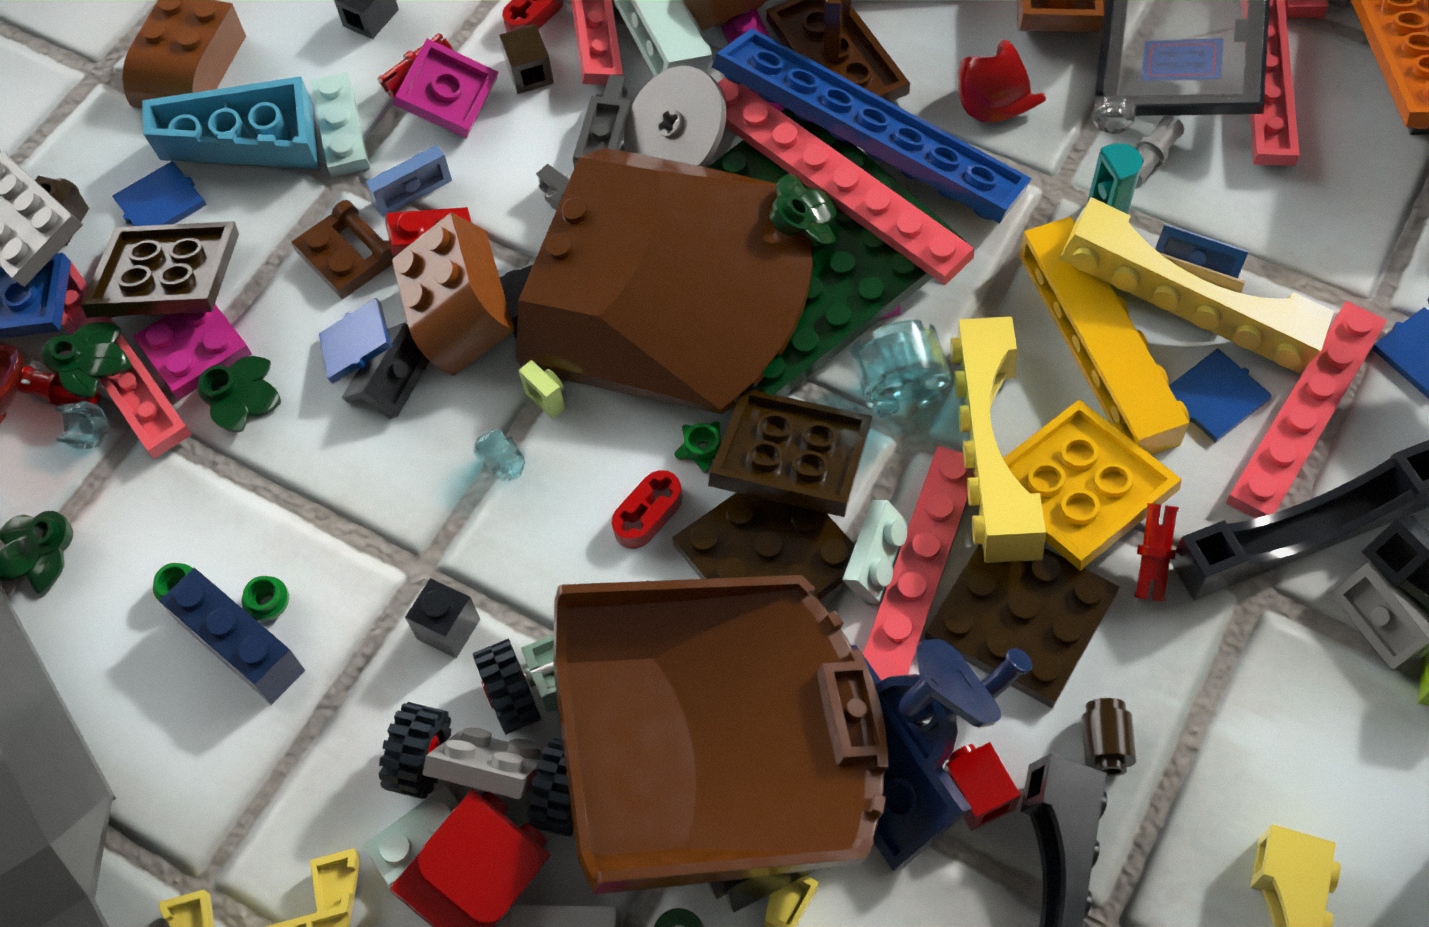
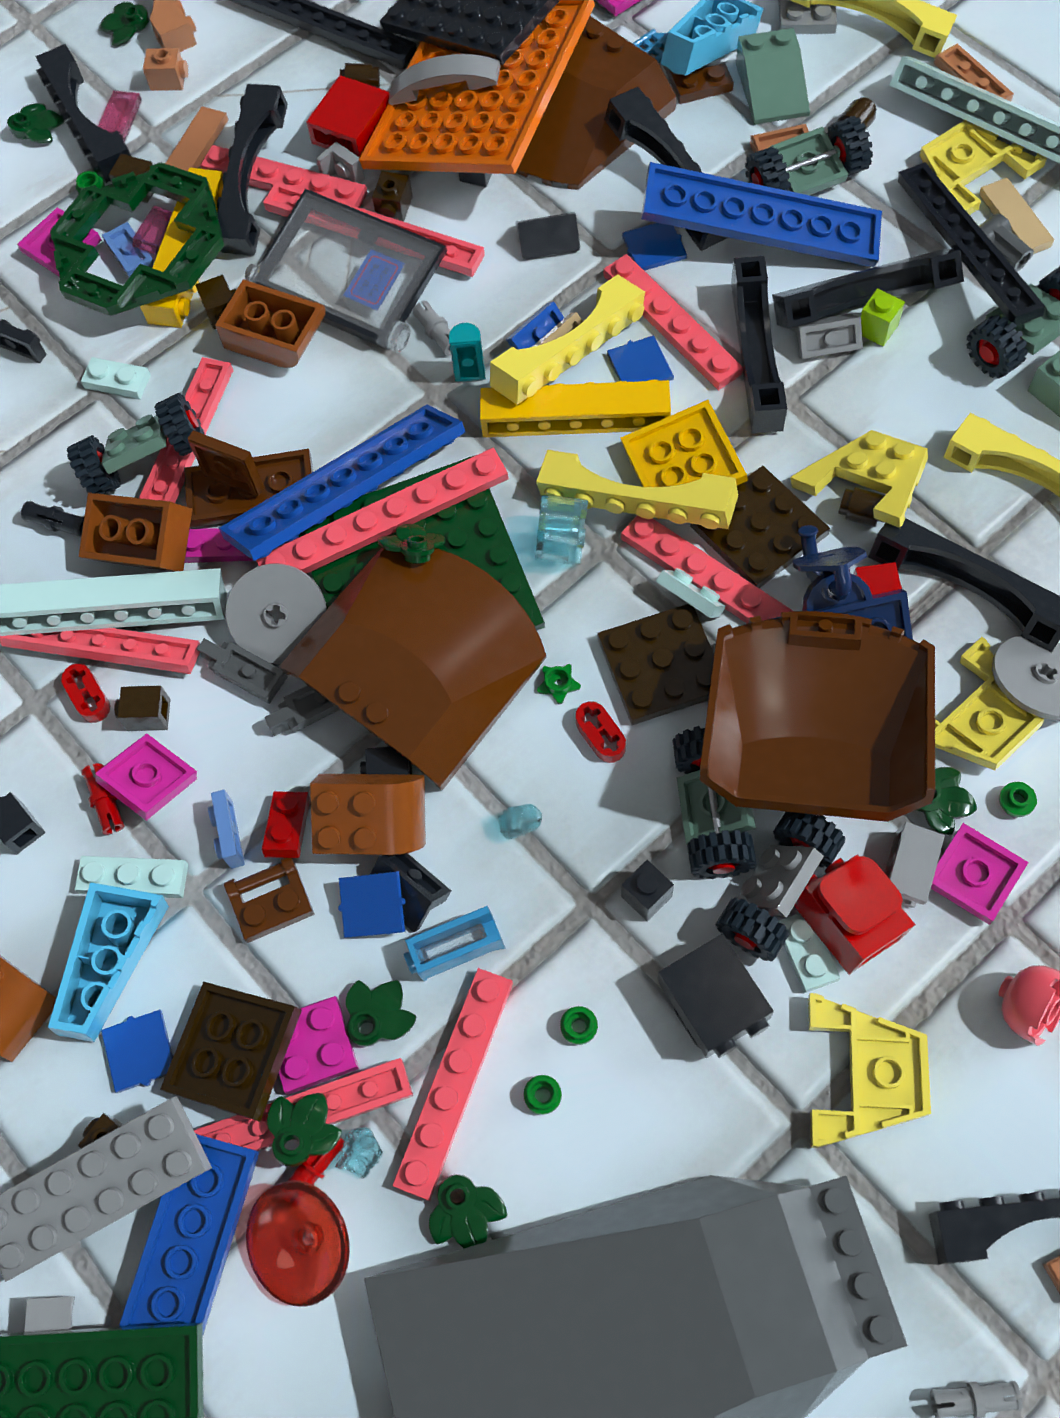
camera: 70 degrees left, 5 degrees up
(178, 493) = (453, 1085): none -> coral plate
(233, 635) = (609, 1051): dark blue brick -> none
(317, 732) = (715, 997): none -> black brick
(330, 438) = (453, 943): none -> dark azure window
(543, 388) = (473, 774): yellowish green plate -> none
(791, 452) = (600, 618): dark brown plate -> none
(996, 85) = (342, 398): red piece -> none
(1156, 552) = (750, 433): red pin -> none
(1188, 737) = (875, 463): none -> light yellow wing
(1324, 37) = (392, 195): none -> dark brown brick
(1366, 221) = (548, 235): none -> black panel

